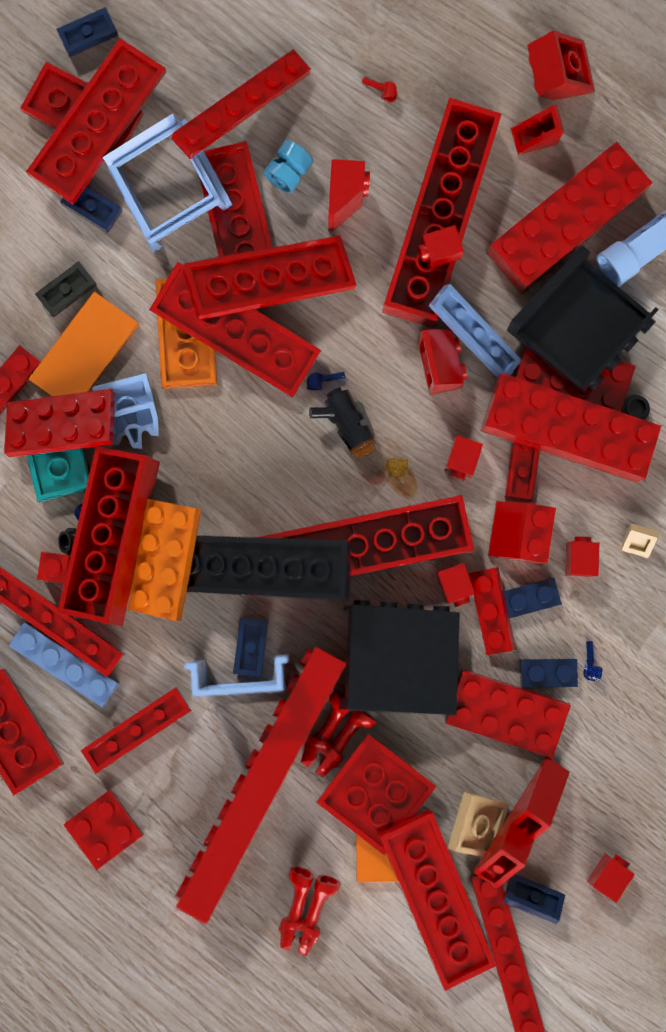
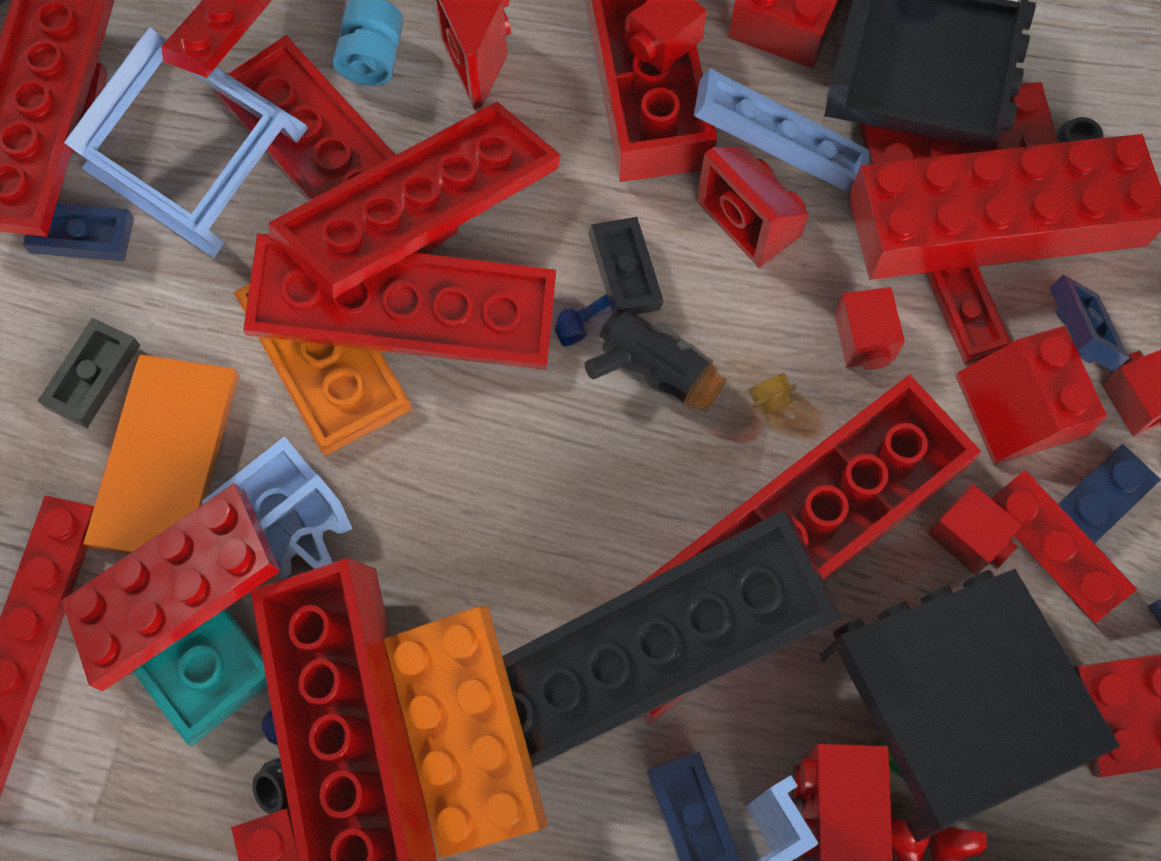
camera: 20 degrees left, 15 degrees down
(359, 363) = (625, 266): none -> black plate
(572, 510) = (1088, 323): none -> dark blue plate

